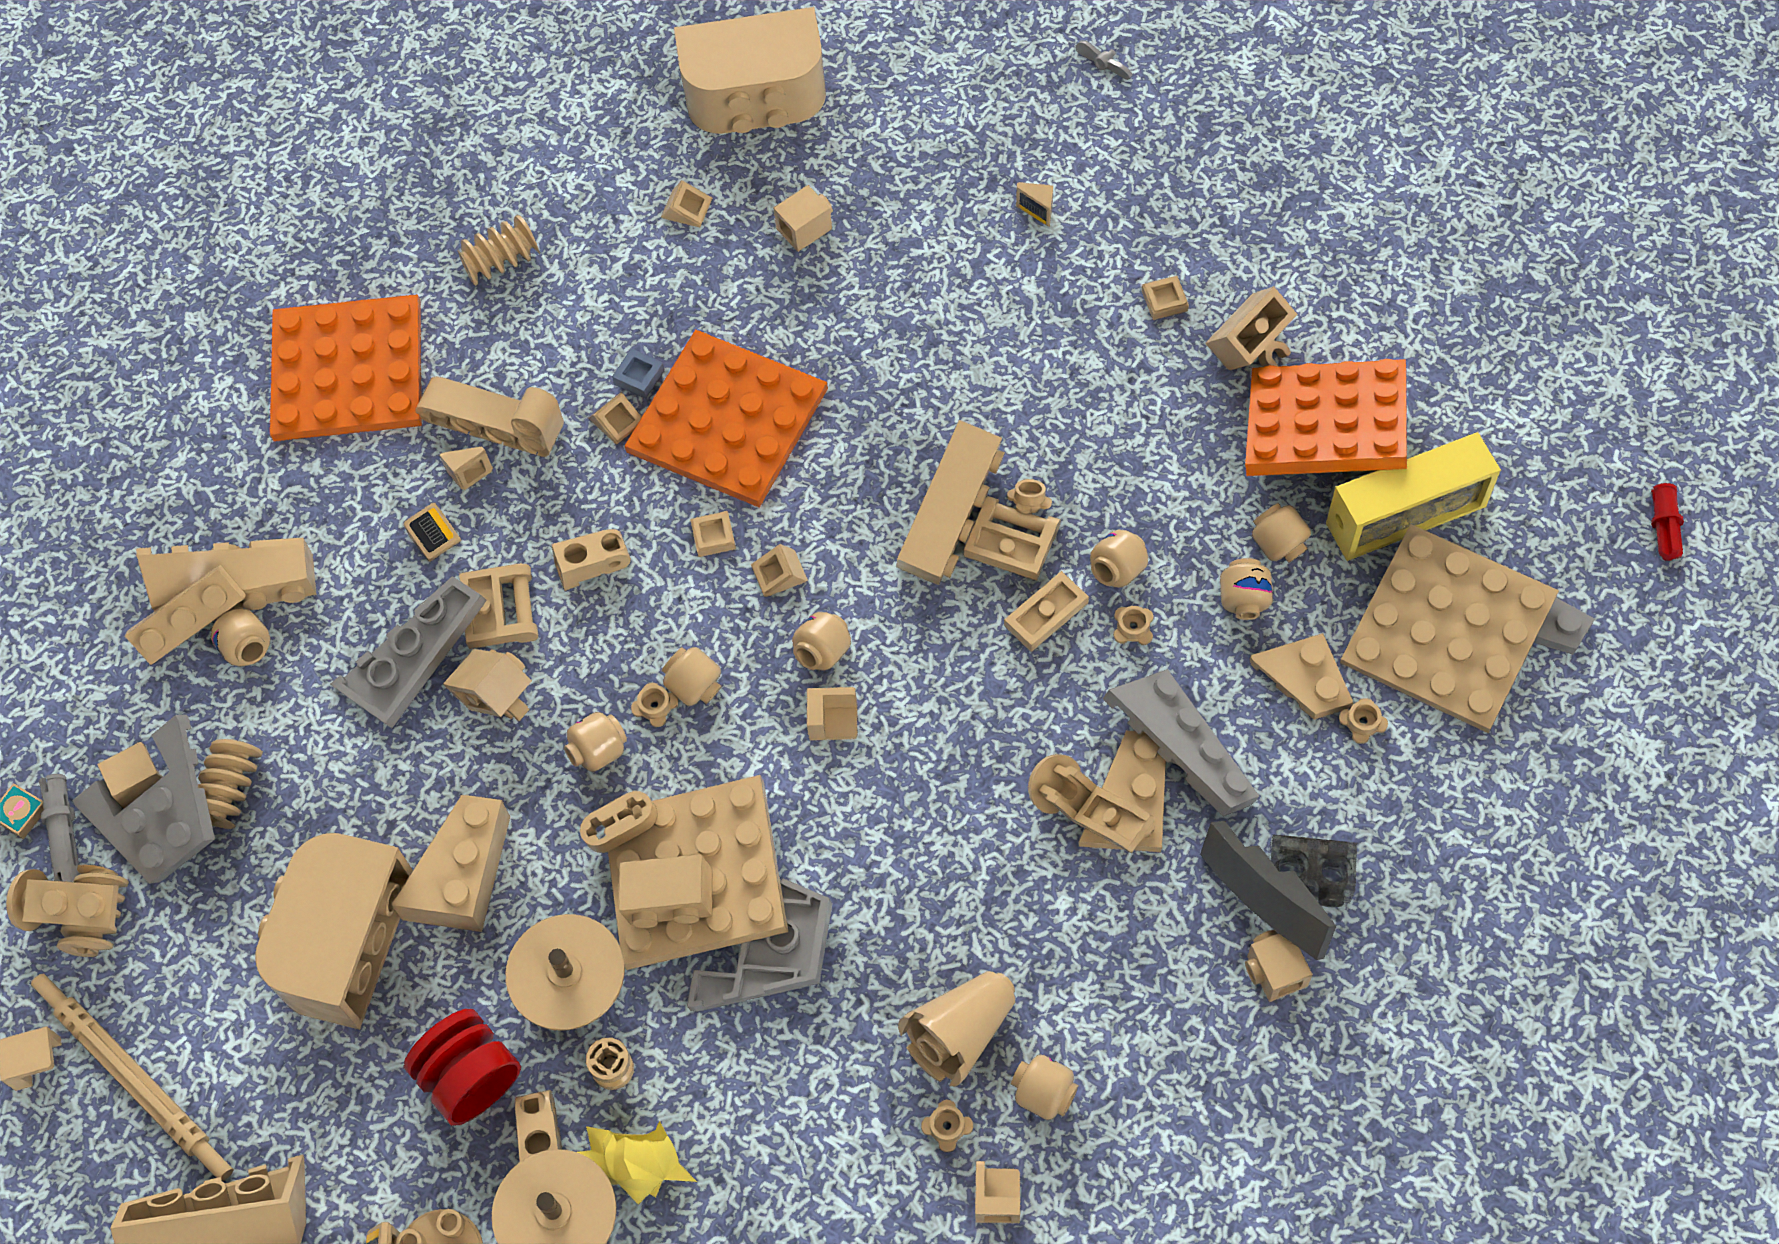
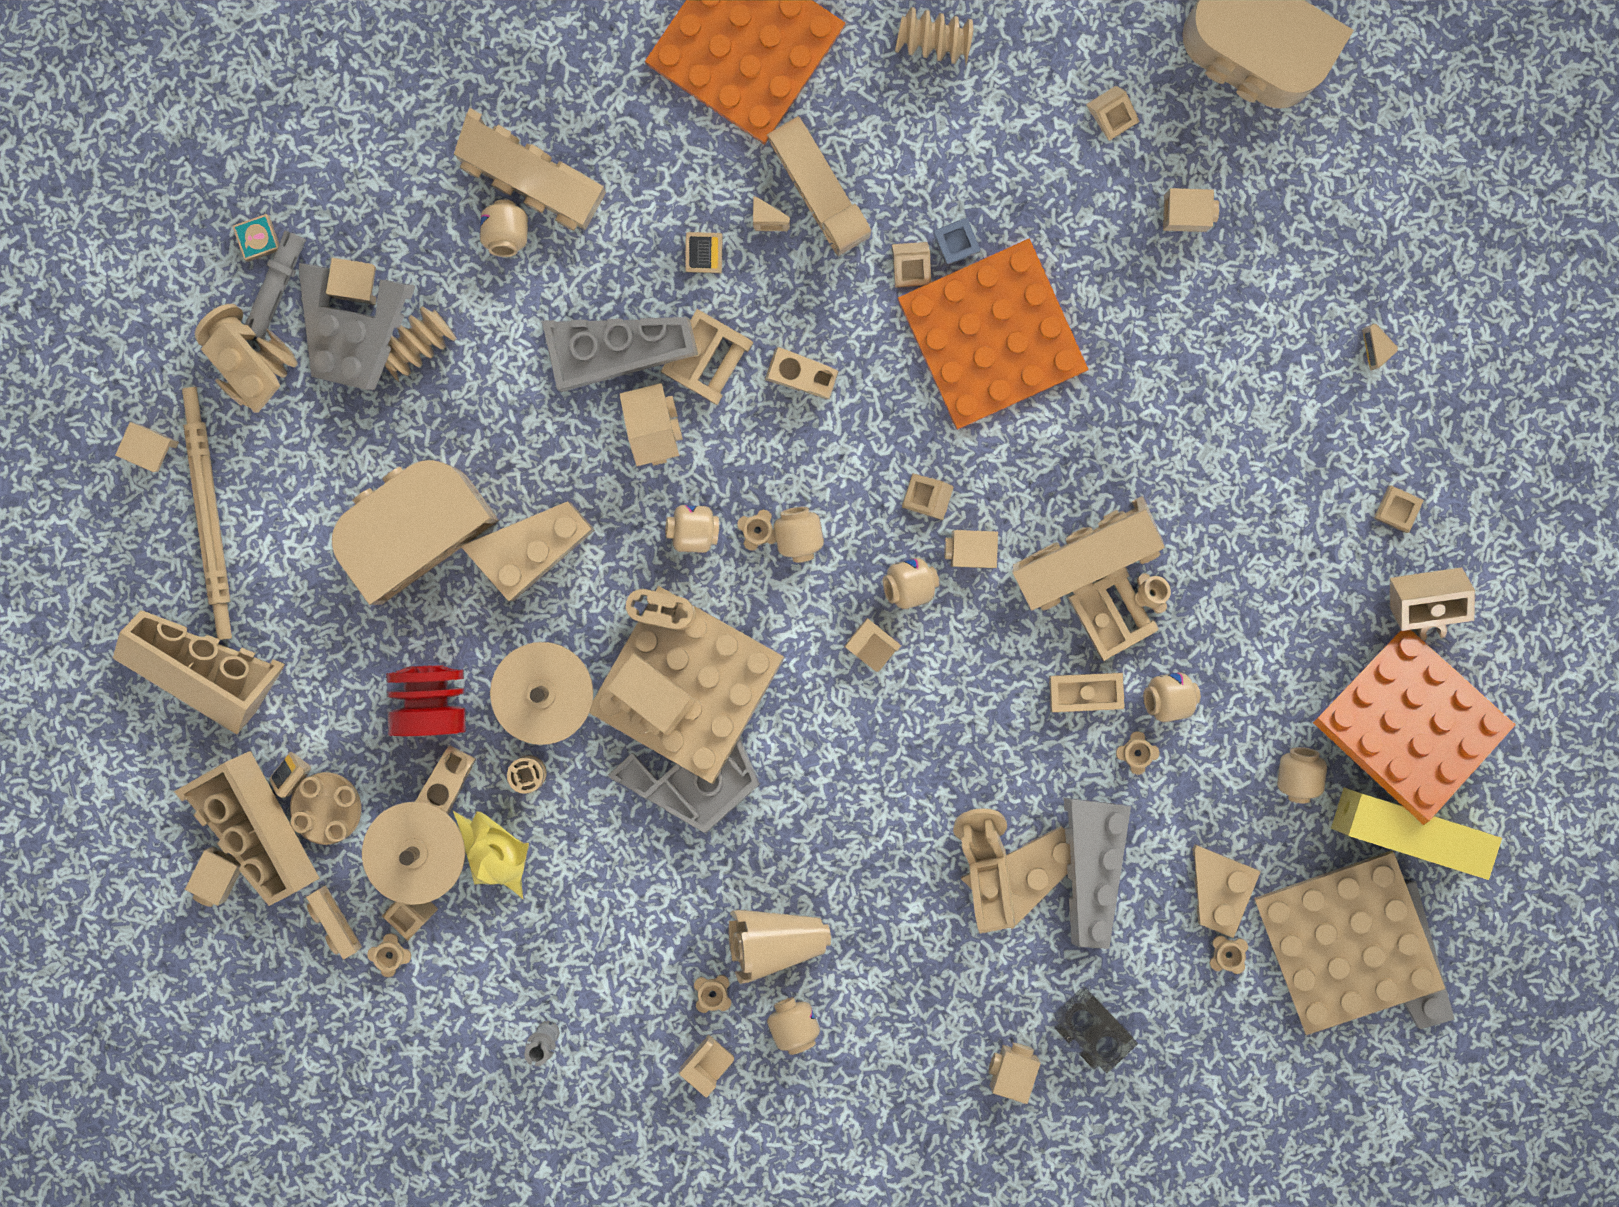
camera: 35 degrees right, 25 degrees up
(185, 615) = (474, 180): tan plate -> none
(713, 534) = (905, 425): tan tile -> none
(850, 576) = (972, 549): none -> tan brick
(1103, 60) = (1547, 253): light grey piece -> none
(1246, 588) = (1237, 797): tan head -> none
(1272, 895) = (1048, 1037): dark grey slope -> none
(1667, 521) = (1577, 993): red axle -> none

